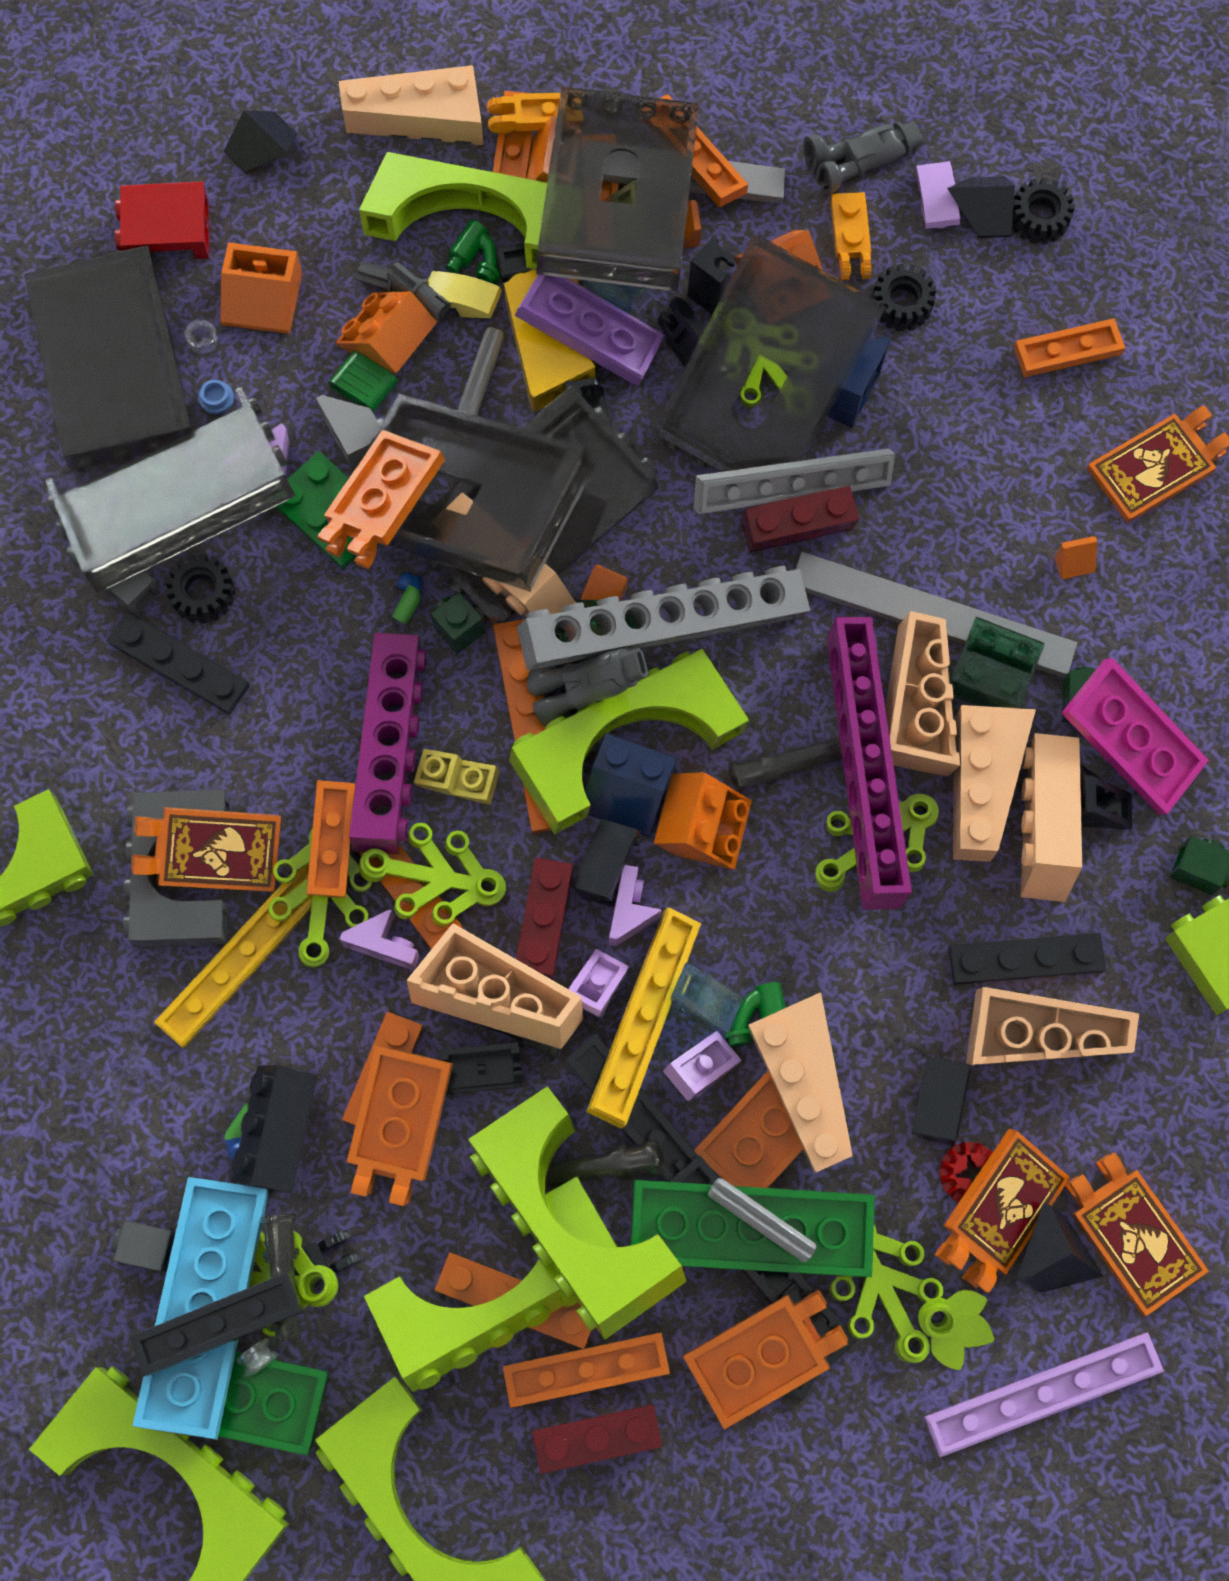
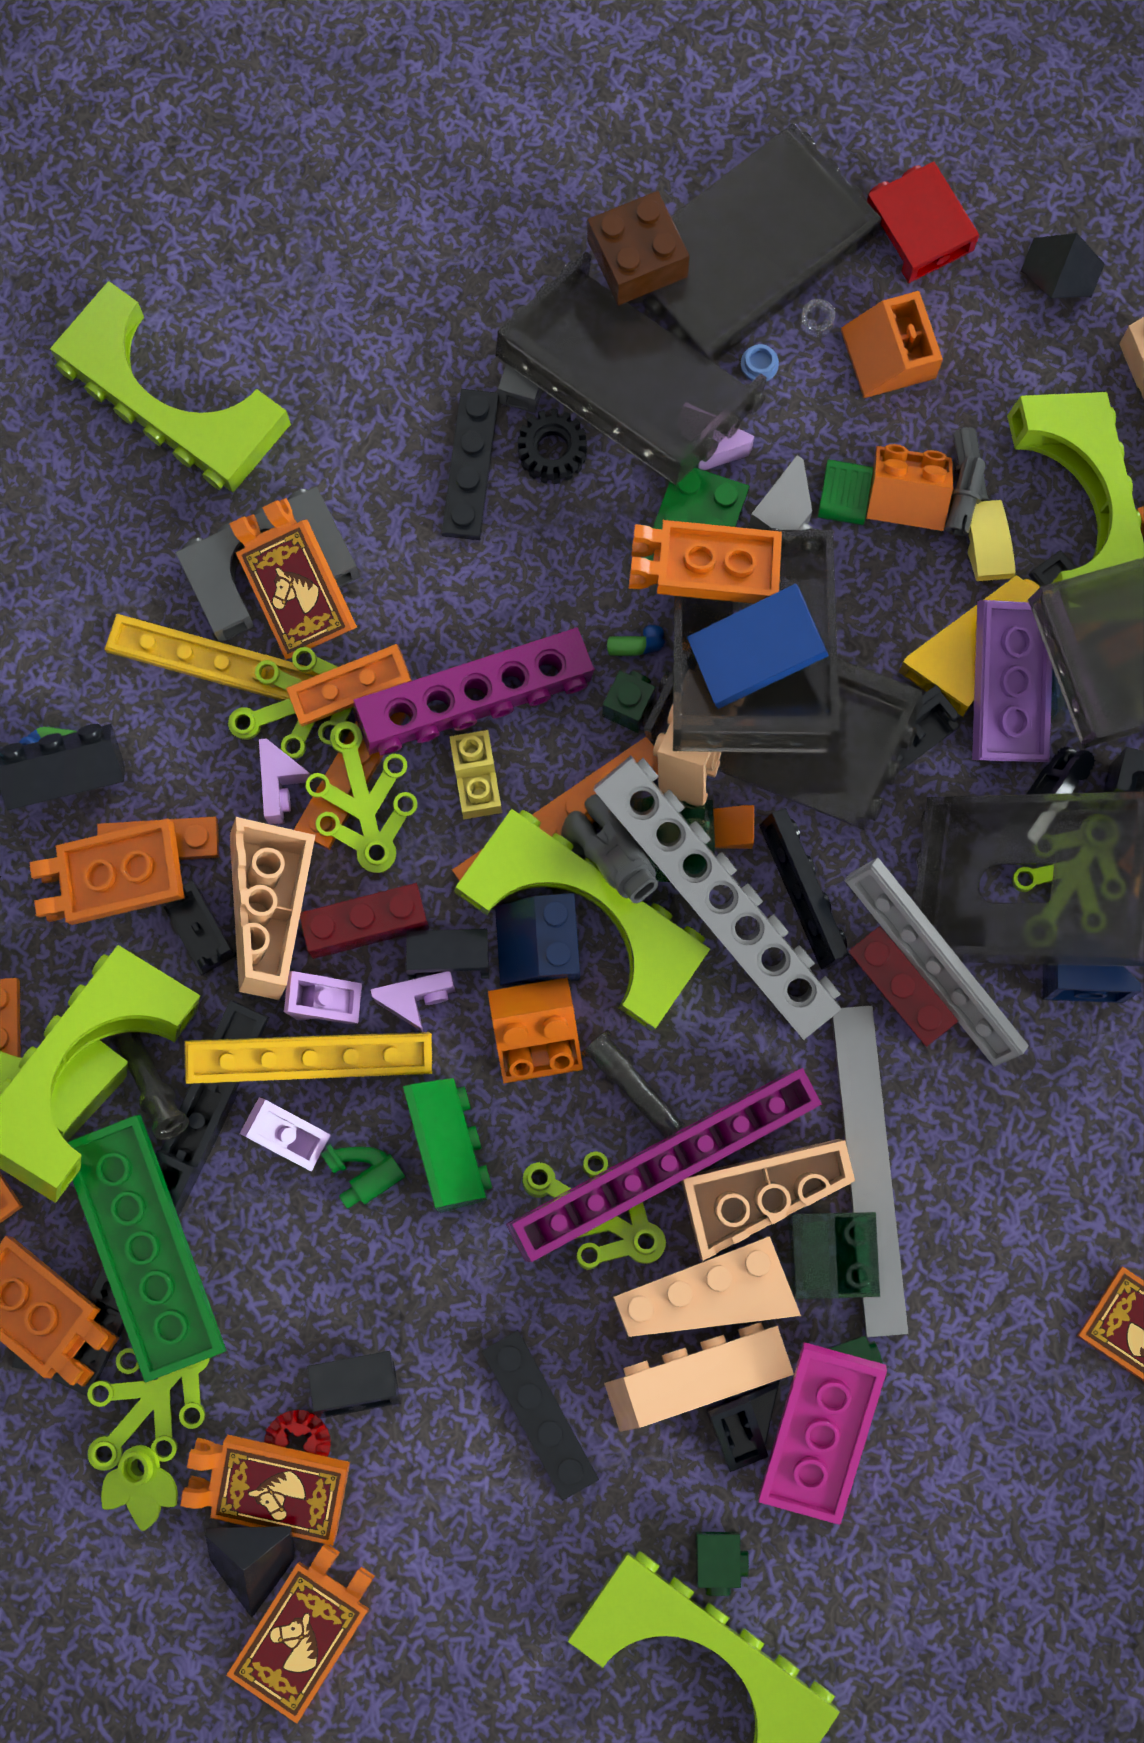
camera: 70 degrees right, 5 degrees up
(68, 434) = (638, 247): none -> reddish brown brick
(471, 240) = (1048, 521): green plant -> none
(474, 485) = (757, 646): none -> blue tile
(481, 371) = (911, 600): light grey axle -> none
(681, 558) = (803, 888): none -> black plate
(705, 998) = (353, 1109): clear light blue slope -> none
(752, 1140) = (255, 1224): orange tile -> none
(762, 1220) = (148, 1251): light grey axle -> none
(771, 934) = (447, 1143): none -> green slope
(804, 1073) = (306, 1238): light nougat wedge -> none
(1034, 1028) = (468, 1461): light nougat wedge -> none
(1043, 1394) = (112, 1602): lavender tile -> none
(1077, 557) = (1004, 1296): orange slope -> none

